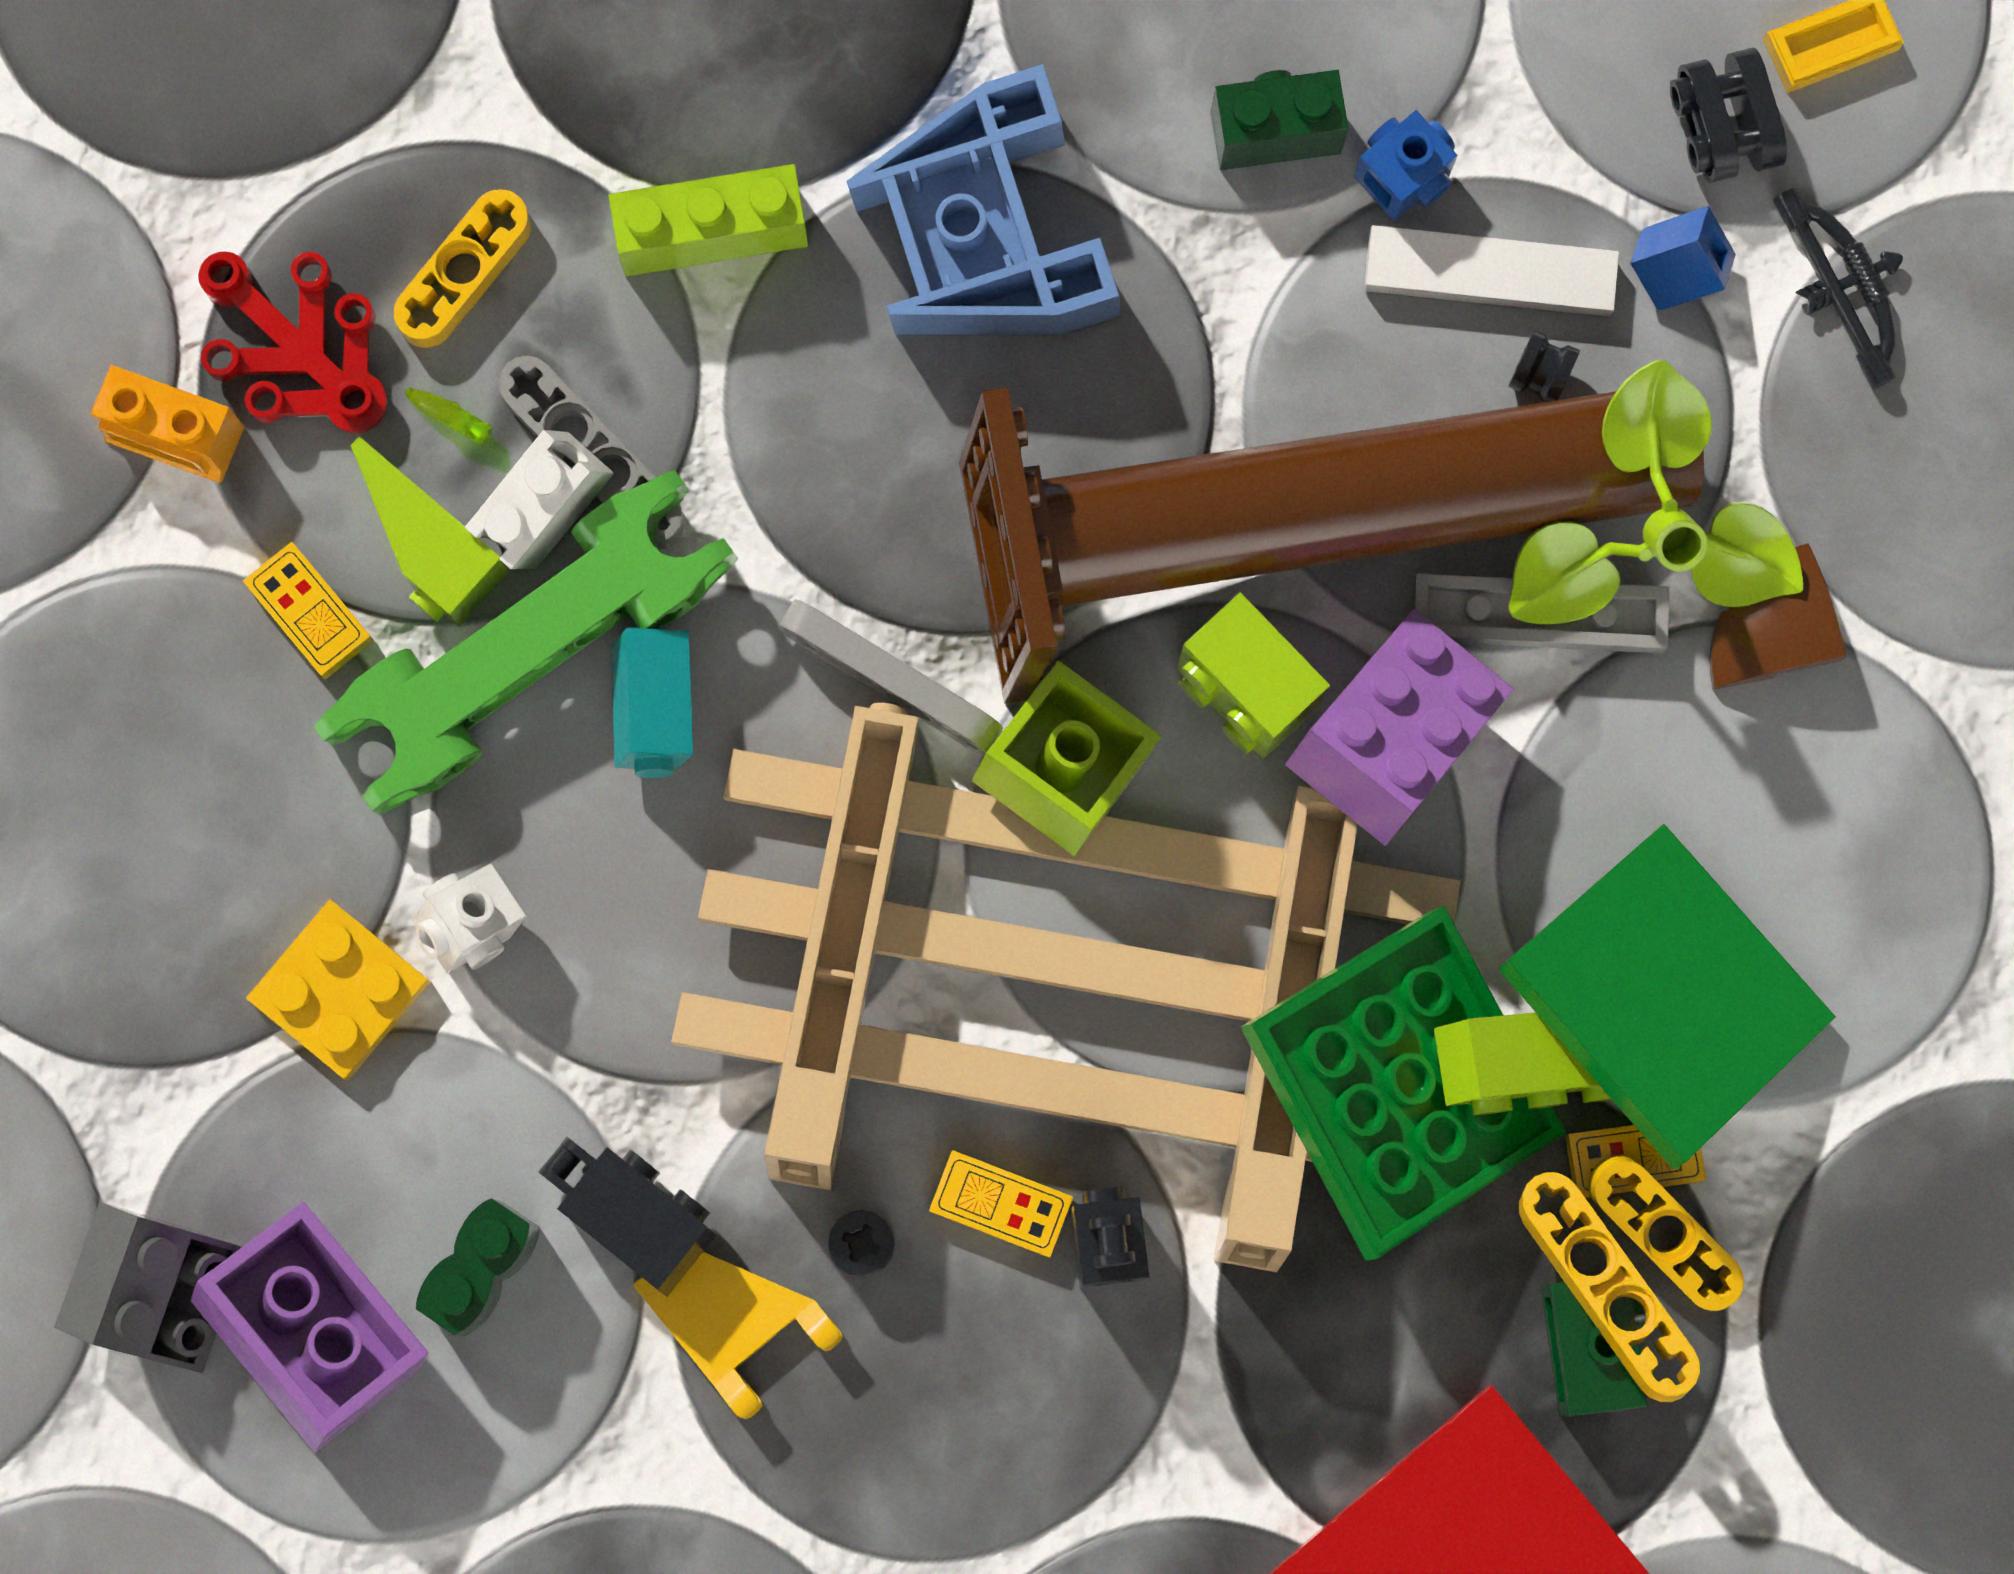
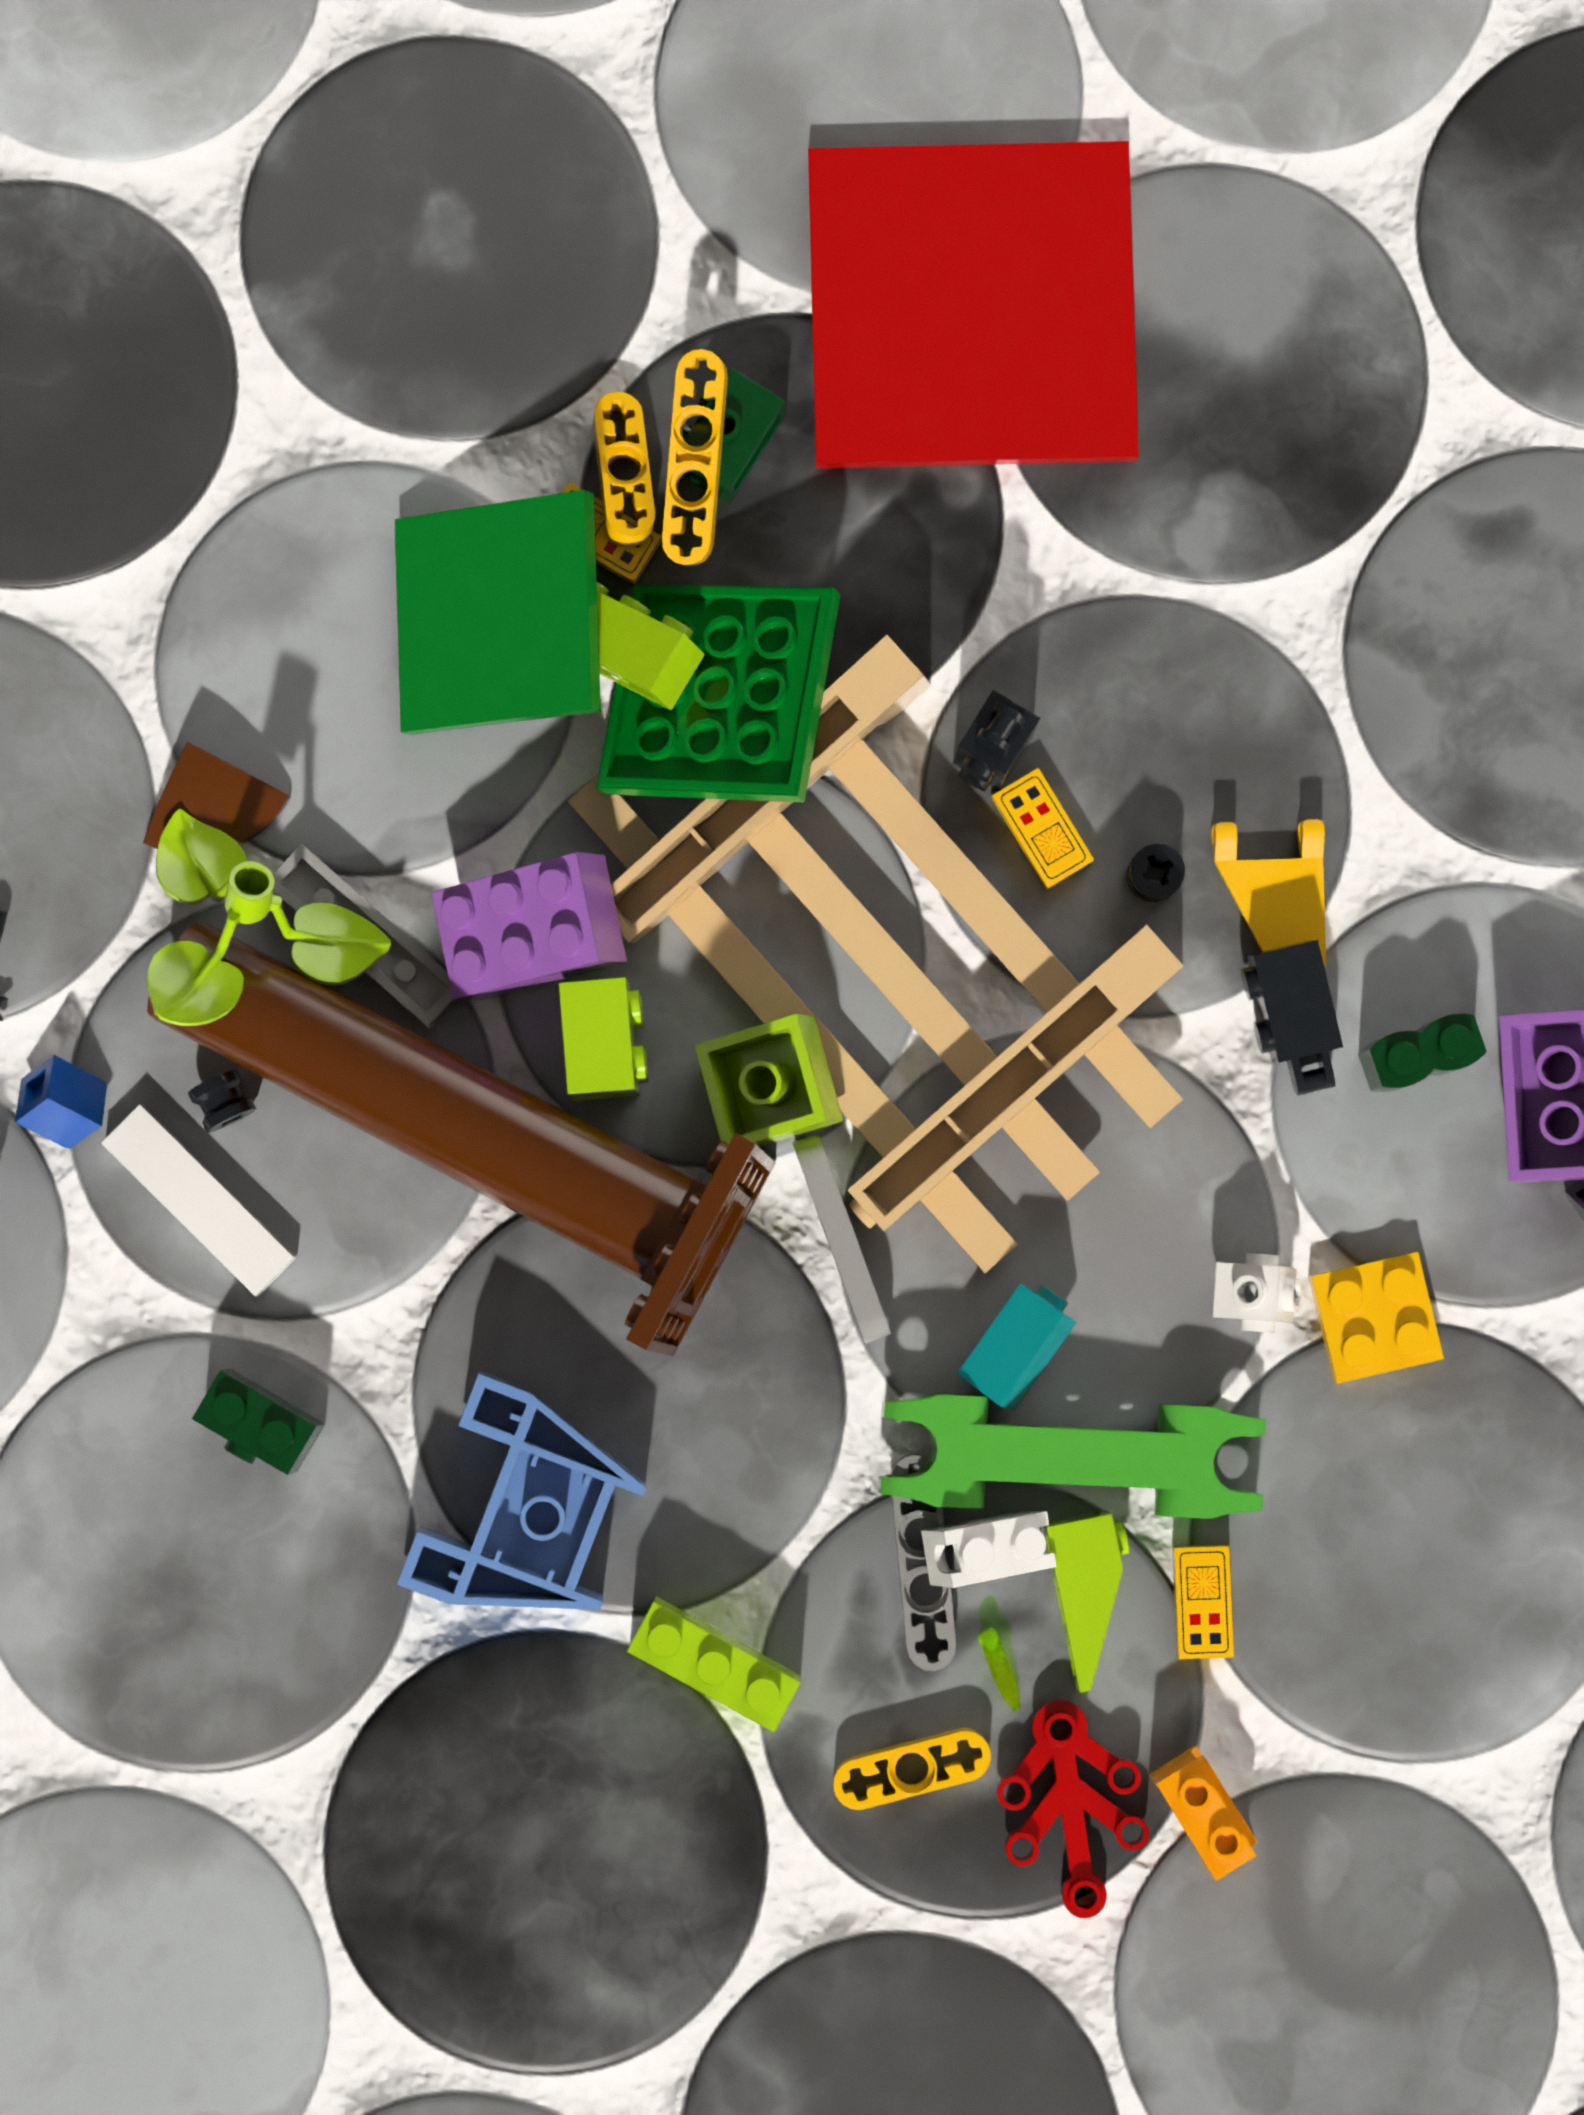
camera: 140 degrees left, 5 degrees up
(1407, 164) = (215, 1317): blue brick -> none

